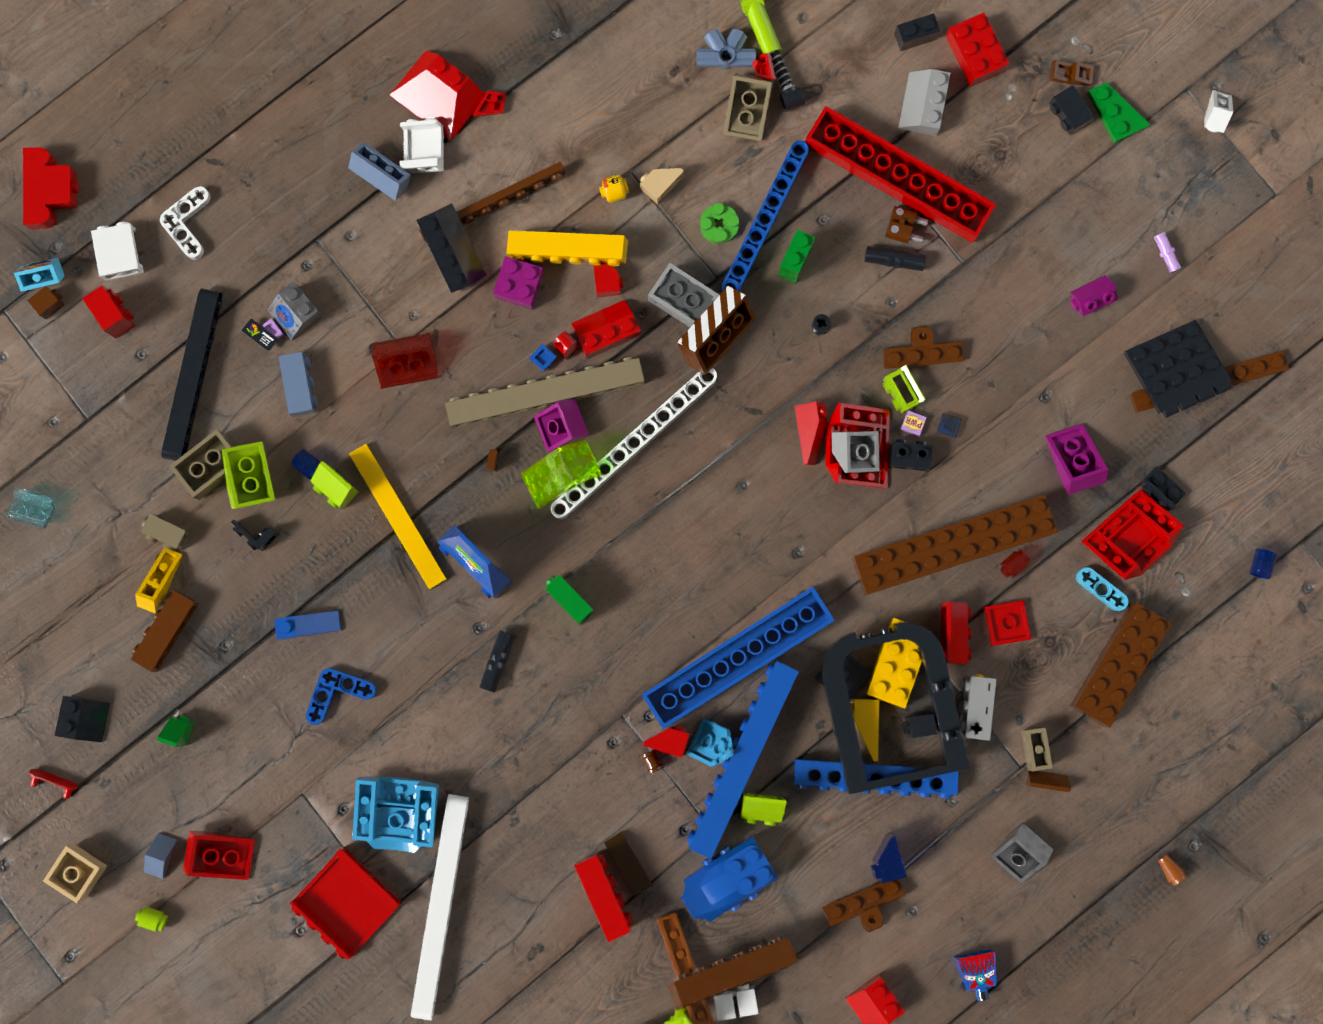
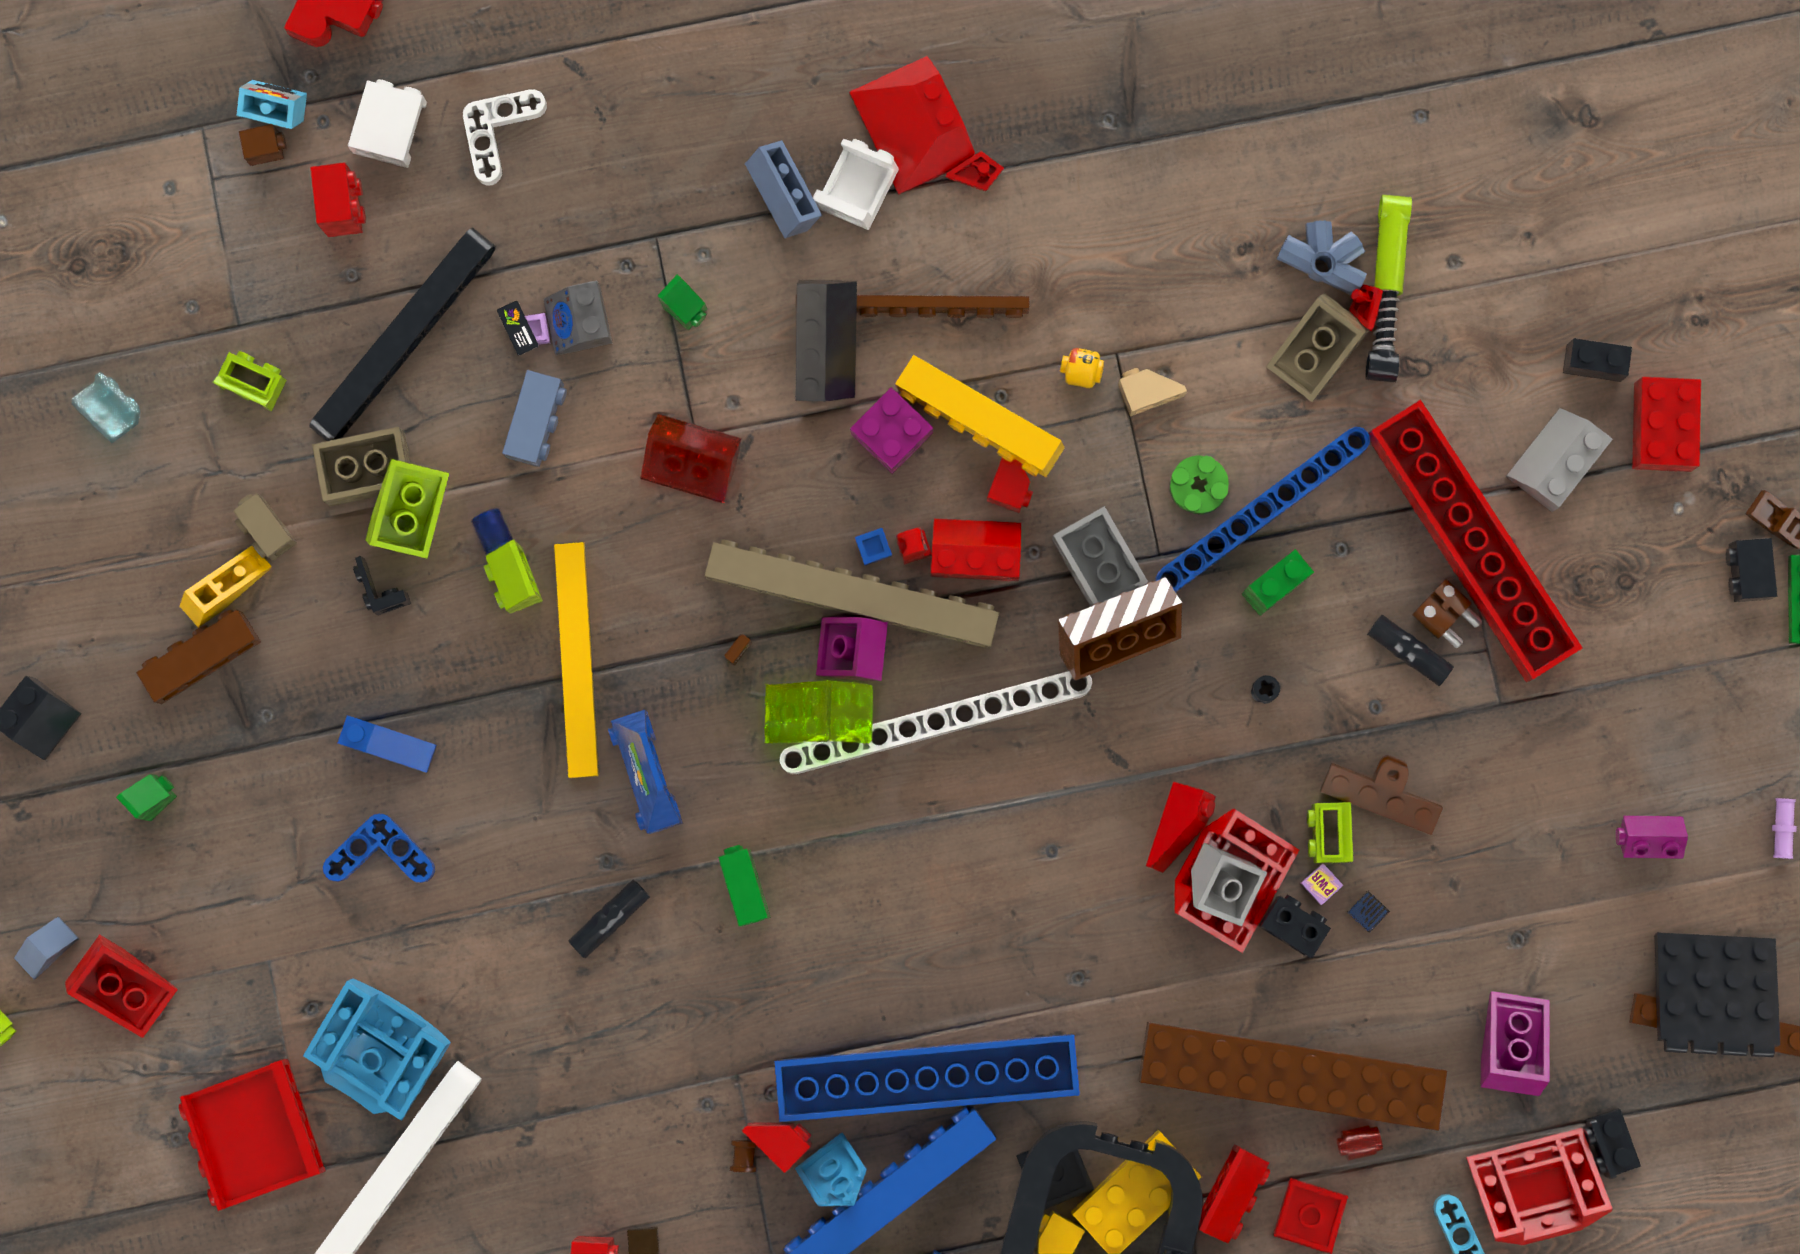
camera: 30 degrees right, 0 degrees up
(111, 455) = (265, 398): none -> lime window
(353, 269) = (683, 303): none -> green slope

